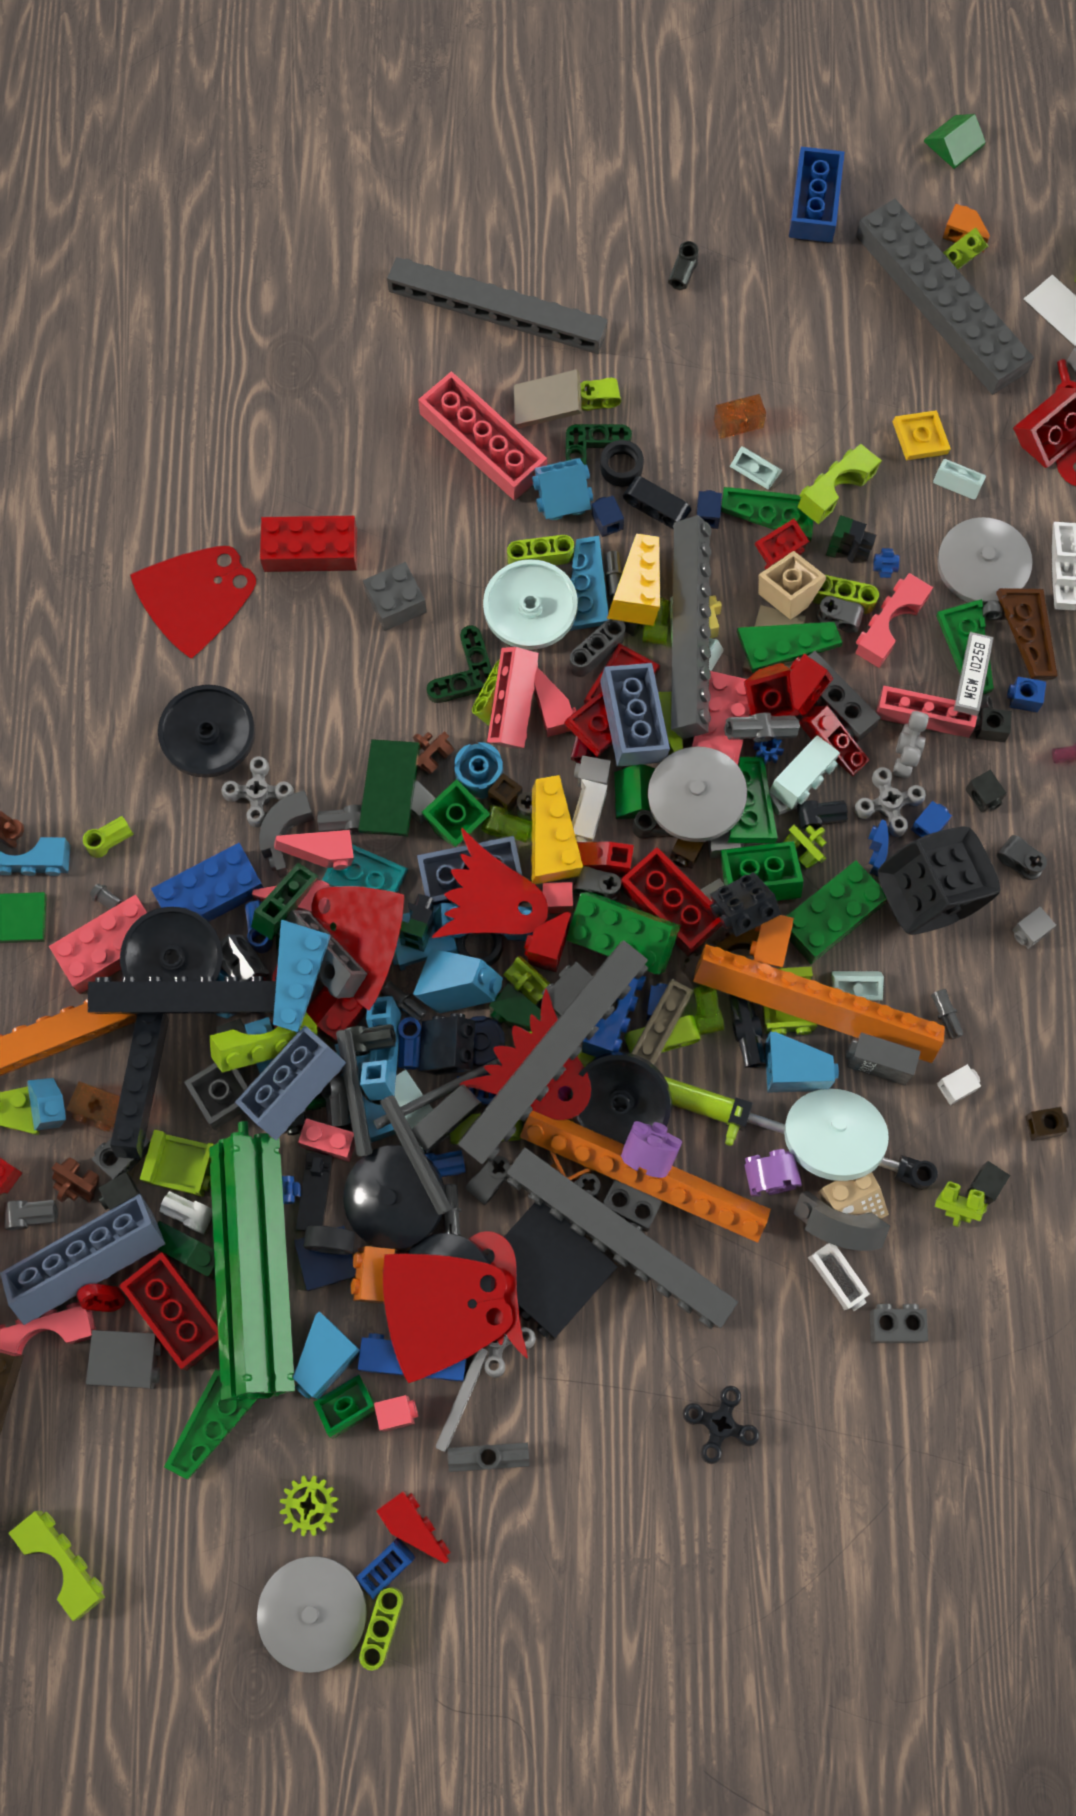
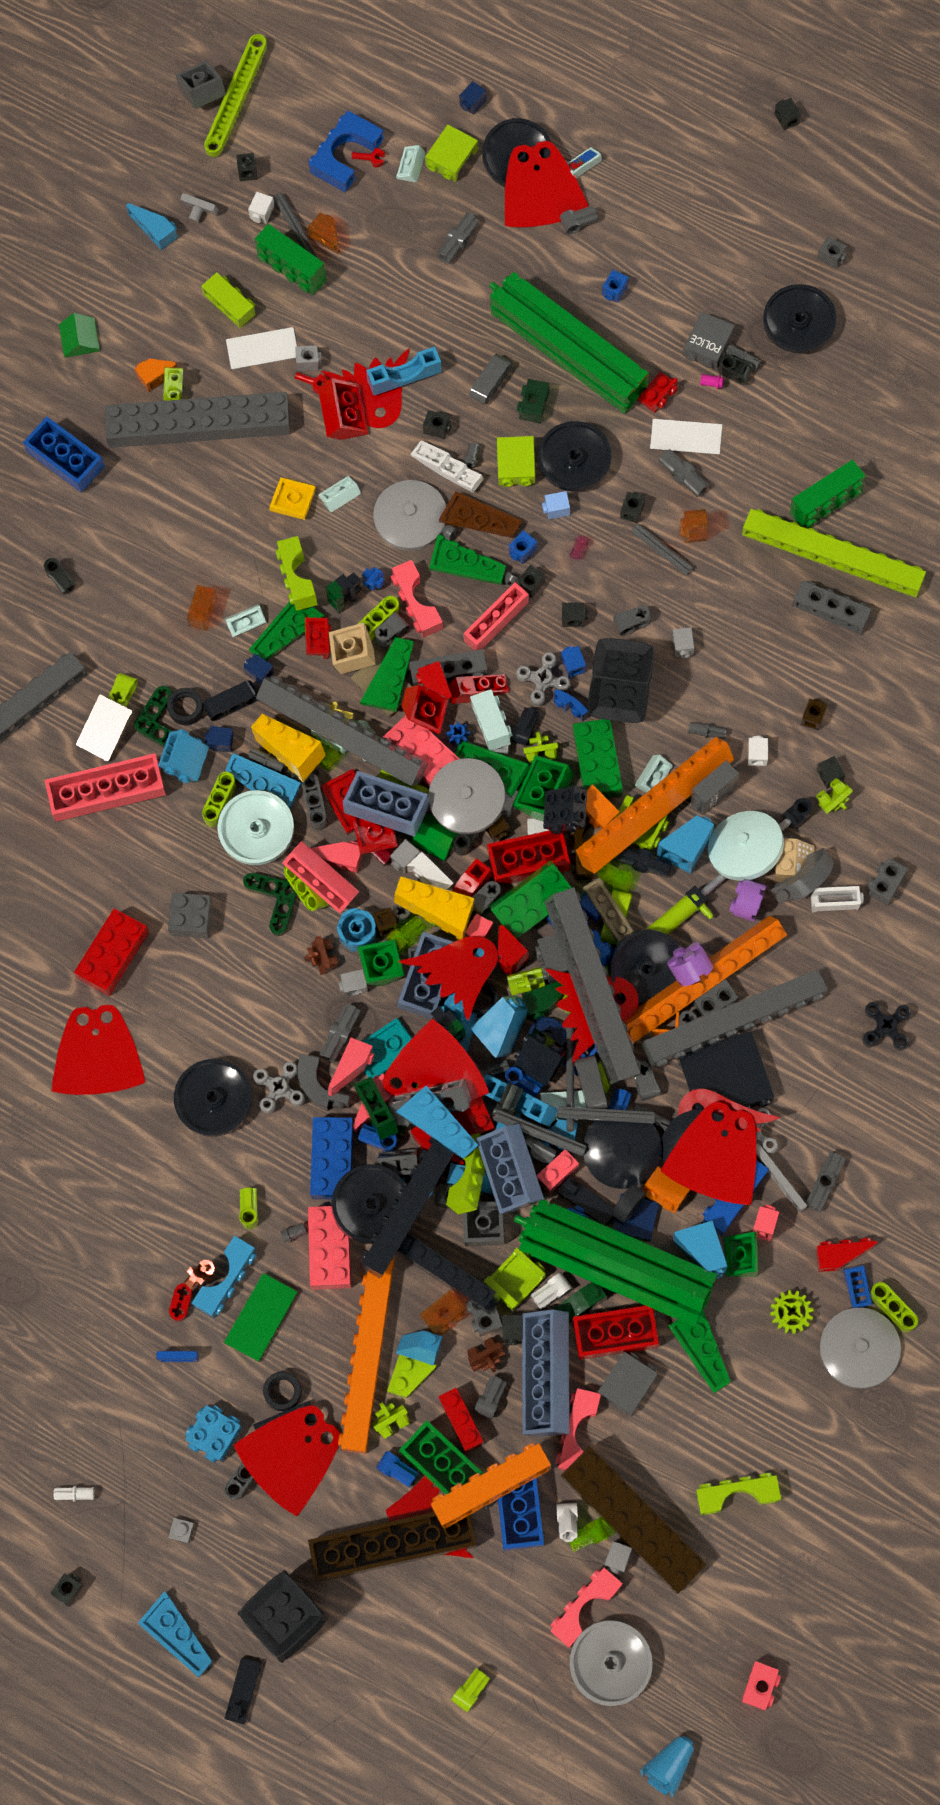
camera: 55 degrees left, 0 degrees up
(100, 1297) = (578, 1375): red beam -> none
(389, 787) = (335, 995): dark green tile -> none
(761, 727) = (445, 727): dark grey piece -> none
(910, 744) = (514, 641): light grey gear -> none
(973, 674) = (490, 571): tile -> none

